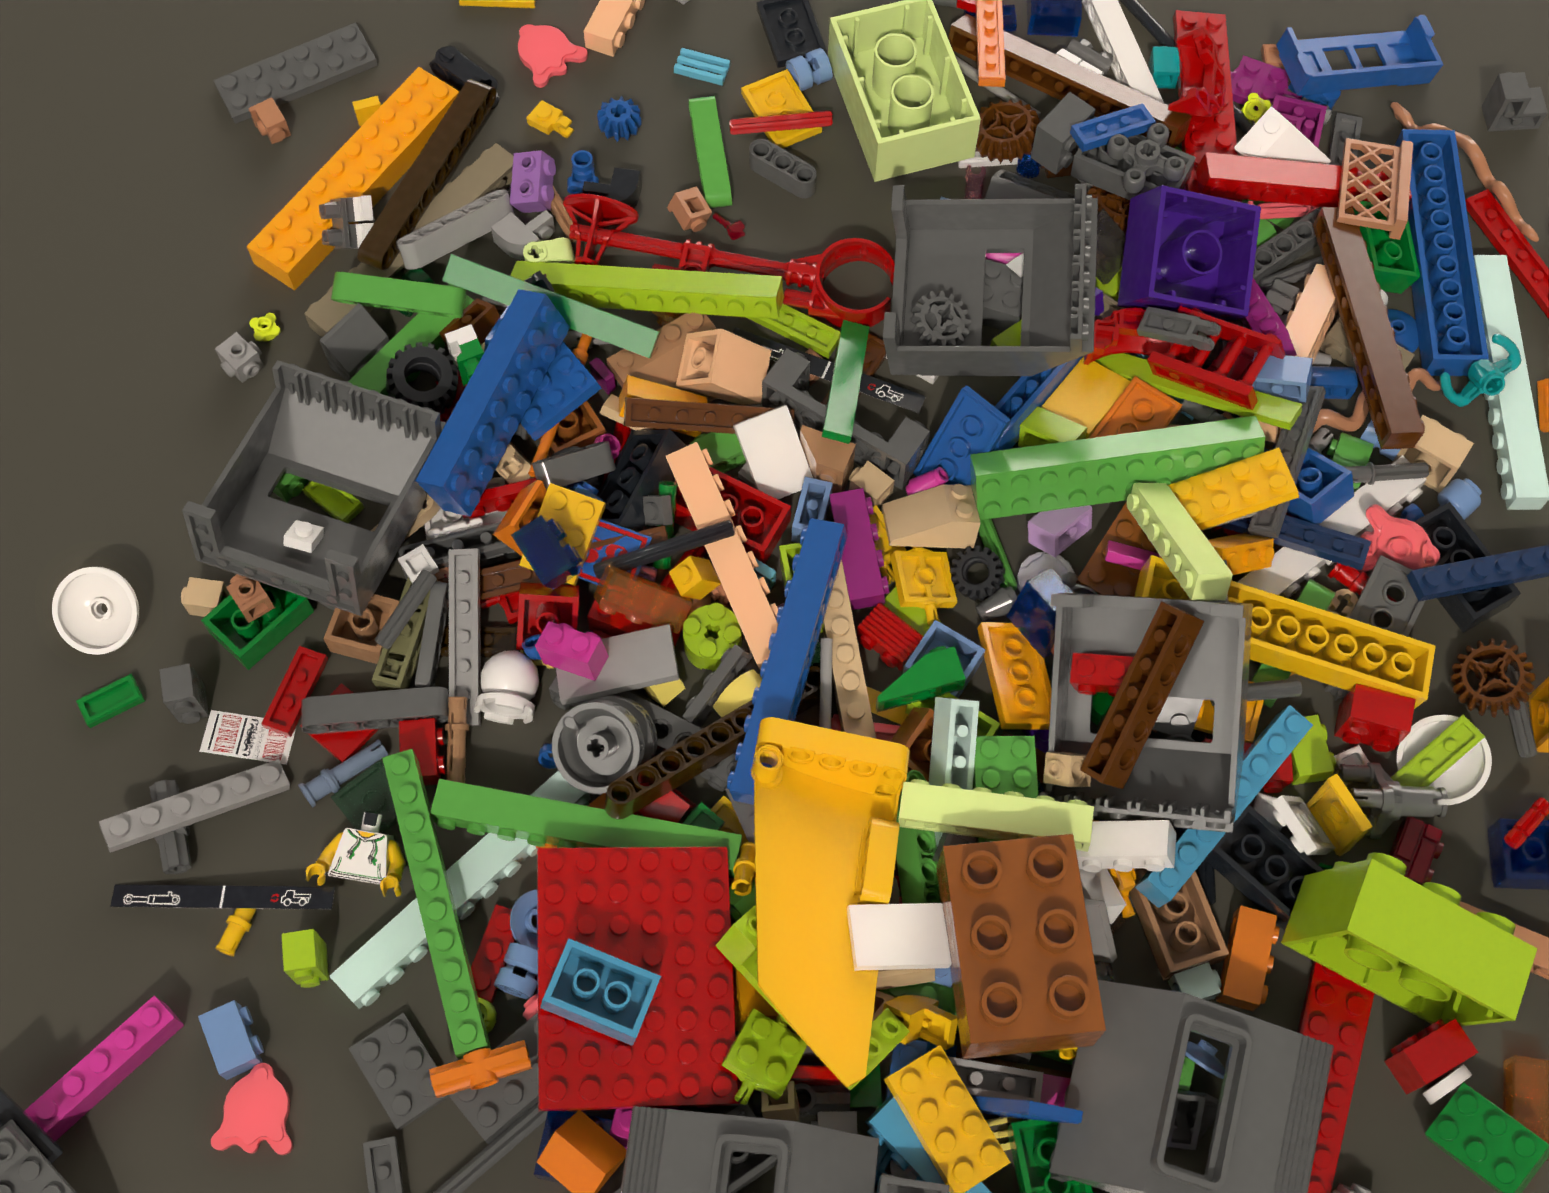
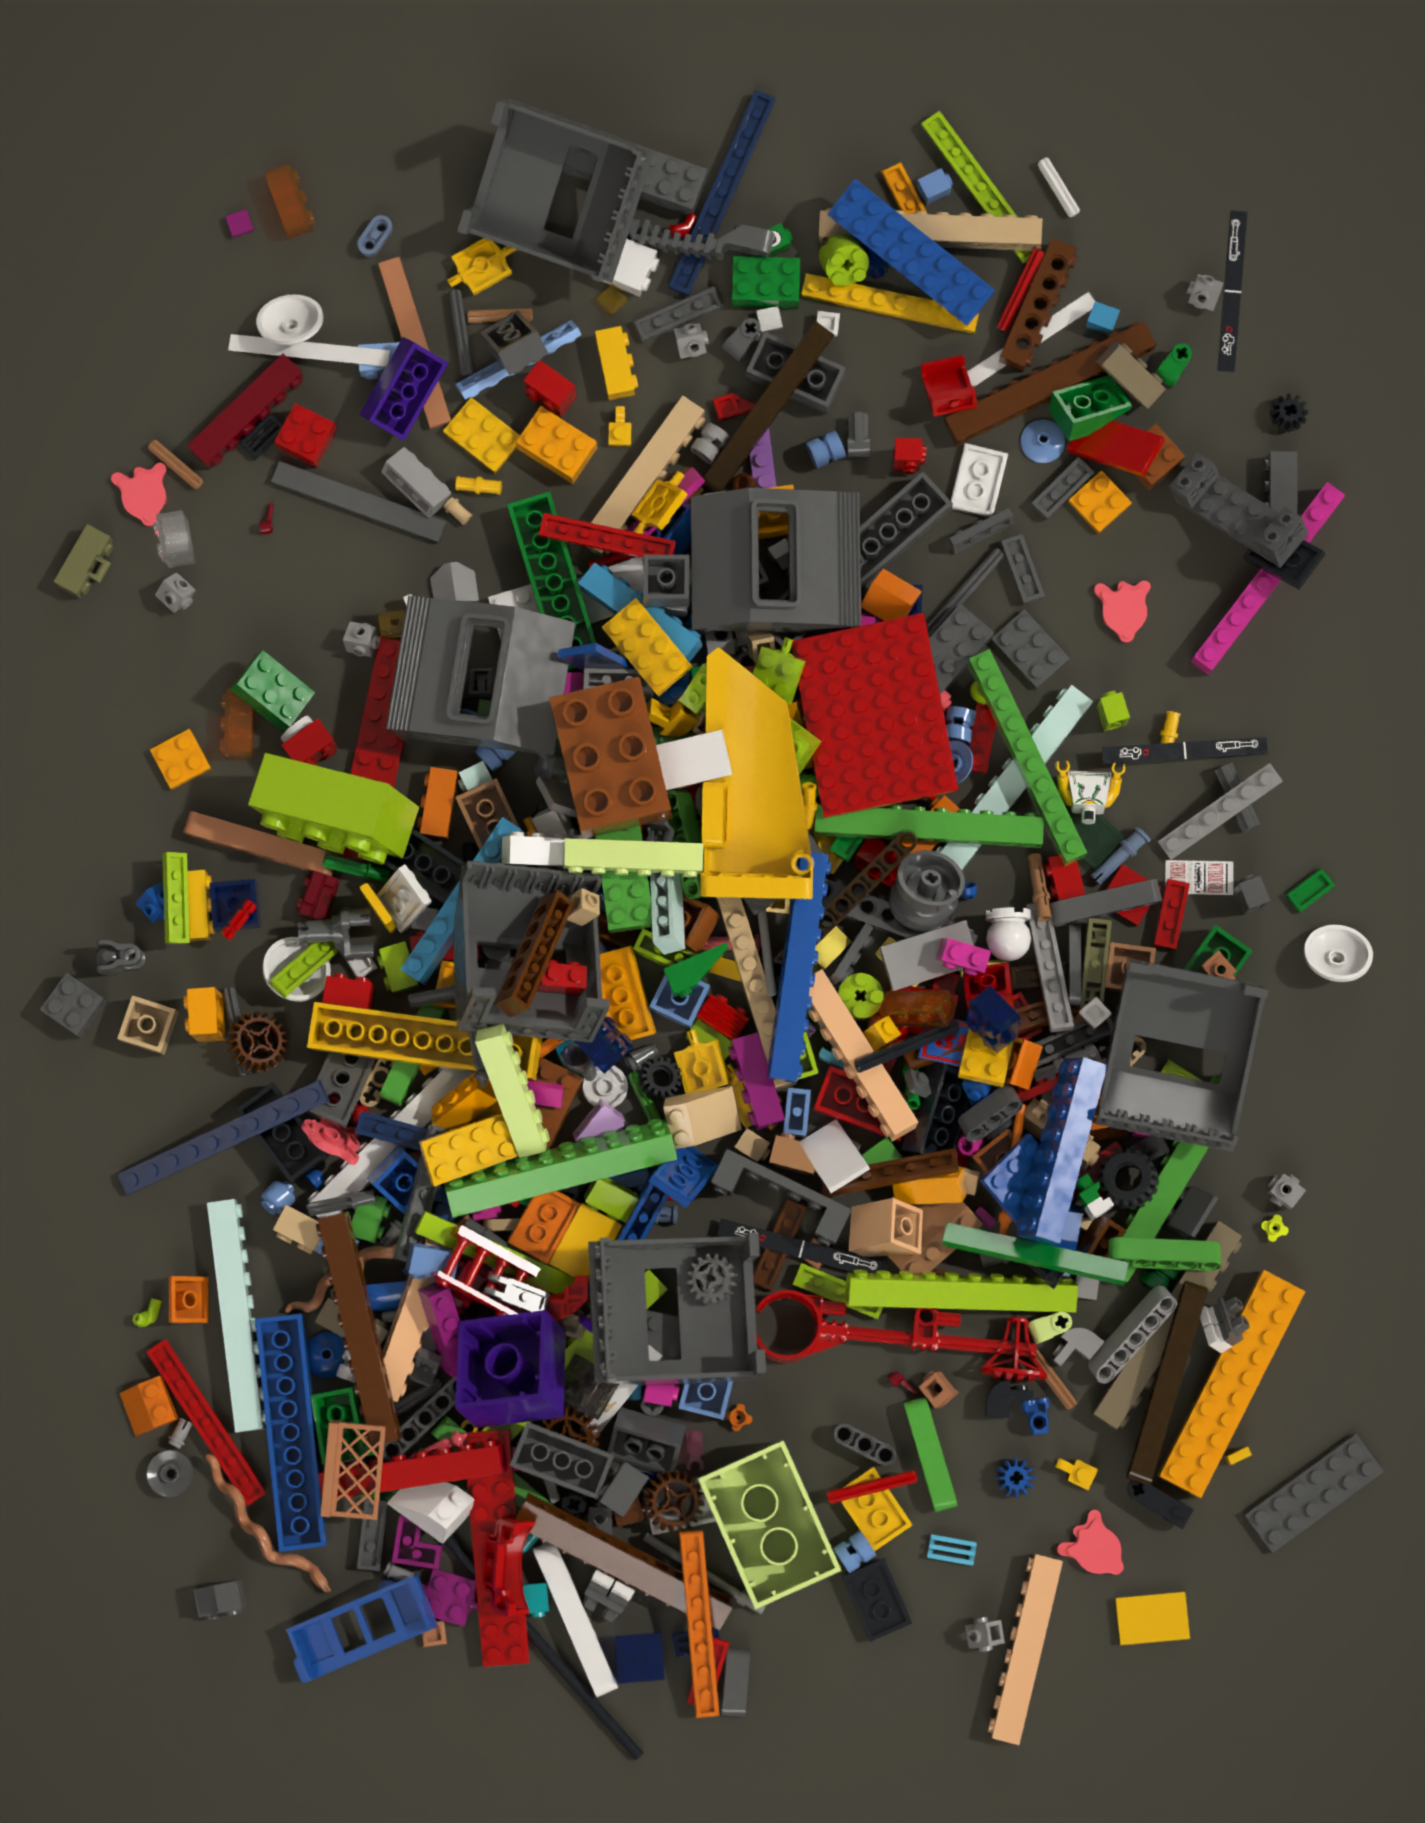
camera: 175 degrees right, 15 degrees up
(203, 595) = (1260, 976): tan brick -> none
(231, 1039) = (1152, 652): medium blue brick -> none
(269, 120) = (1320, 1431): nougat brick -> none
(303, 536) = (1185, 1015): white plate -> none
(405, 609) = (1096, 974): dark grey axle -> none
(480, 1069) = (971, 644): orange piece -> none
(529, 647) = (995, 962): blue hinge -> none
(532, 181) = (1077, 1393): medium lavender brick -> none
(600, 992) = (894, 688): dark azure brick -> none
(845, 382) = (783, 1223): tile -> none
(926, 481) = (708, 1150): dark pink cone -> none
(1099, 130) = (583, 1481): blue plate -> none
(1146, 158) = (543, 1448): dark grey gear -> none
(1254, 100) = (452, 1564): neon yellow plate -> none
(1484, 375) = (257, 1305): teal piece -> none

